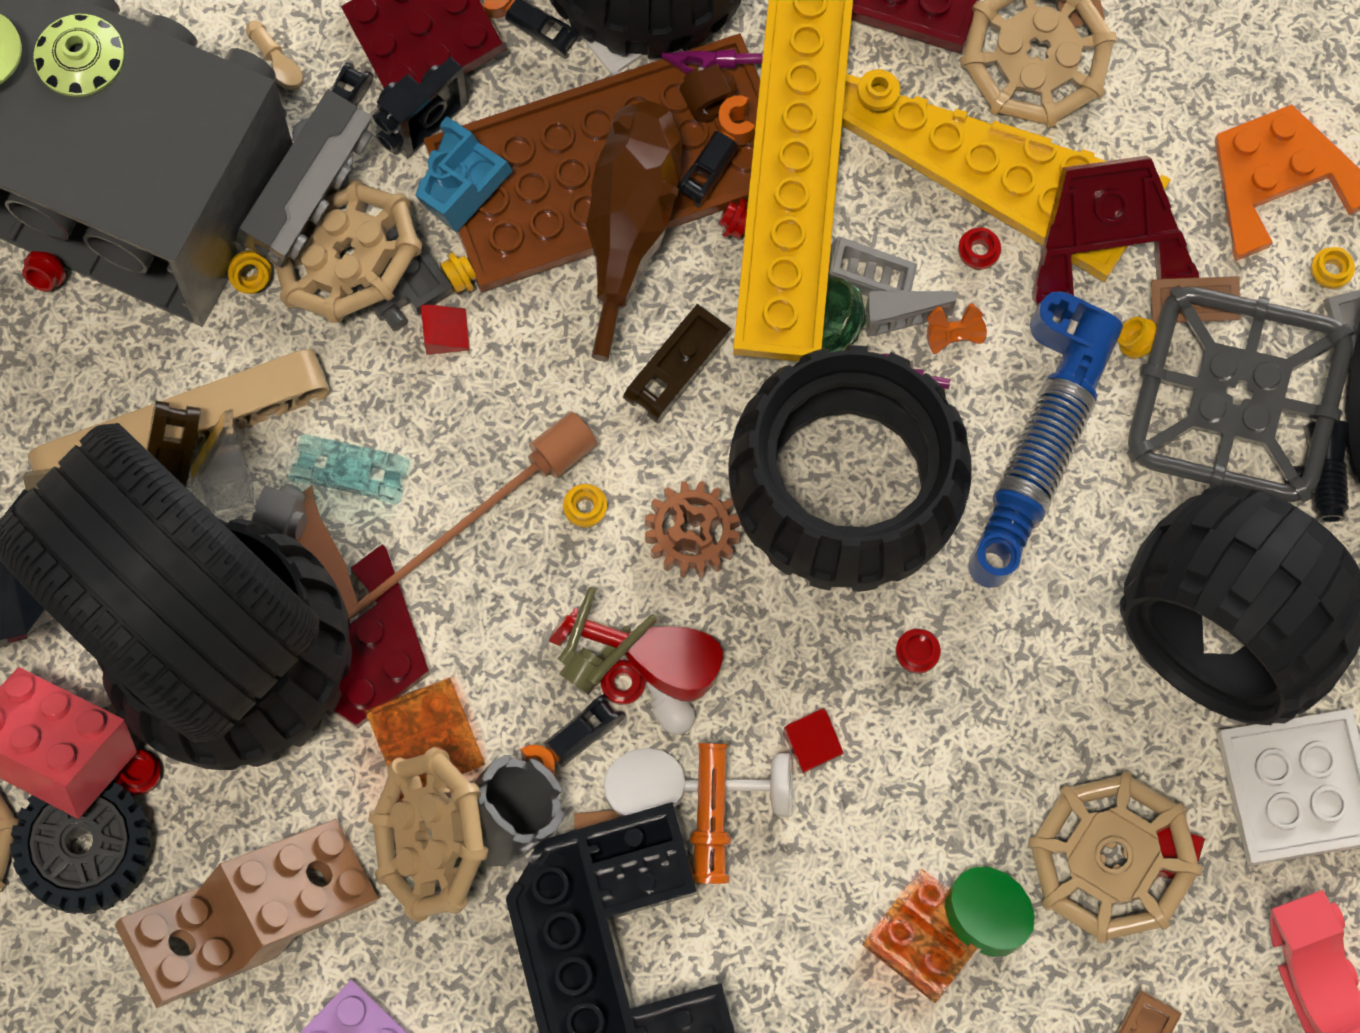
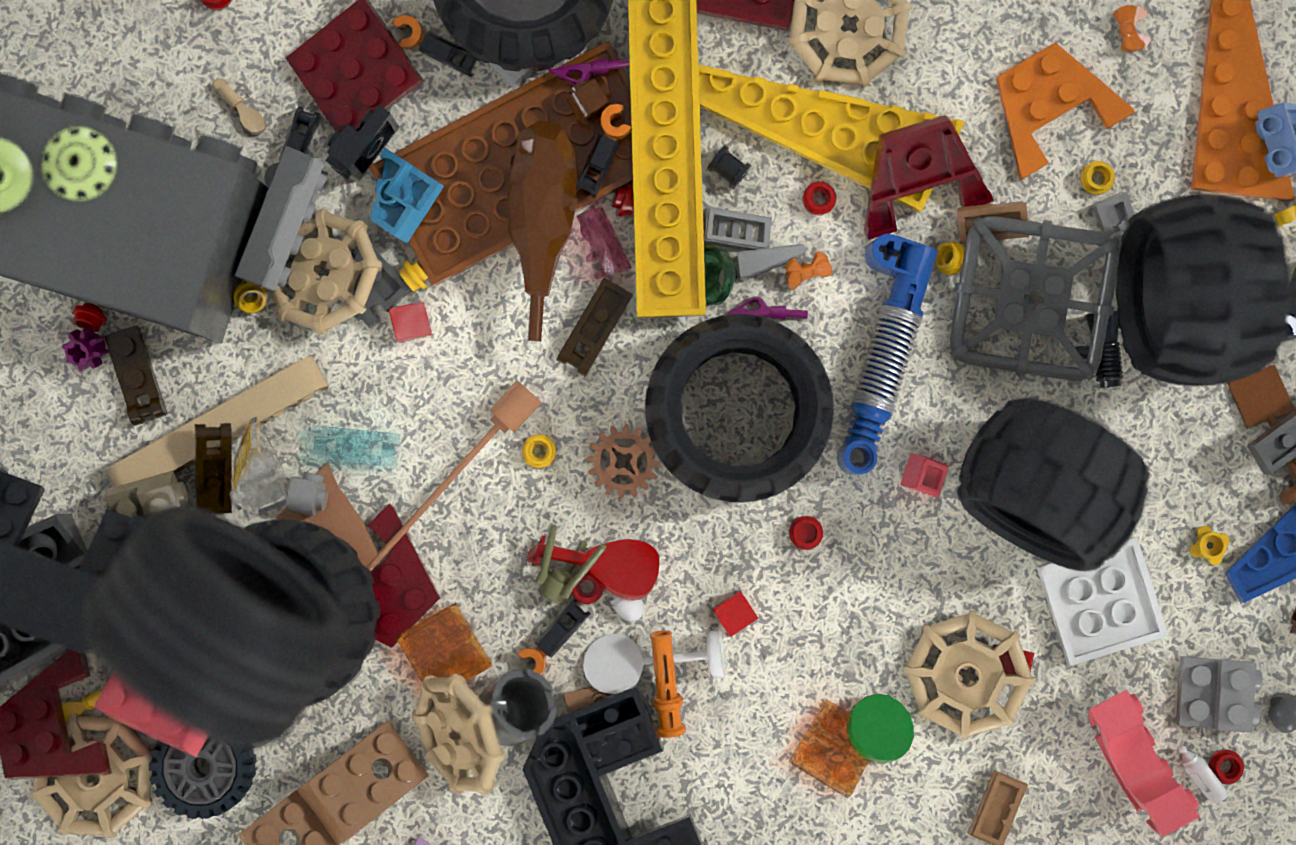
camera: 10 degrees left, 15 degrees up
(43, 306) = (85, 348): none -> magenta gear
(87, 348) = (135, 374): none -> dark brown plate
(698, 251) = (601, 236): none -> clear pink plate
(870, 196) = (729, 167): none -> black bush
(878, 100) = (721, 87): yellow plate -> none
(1080, 599) = (924, 475): none -> coral slope

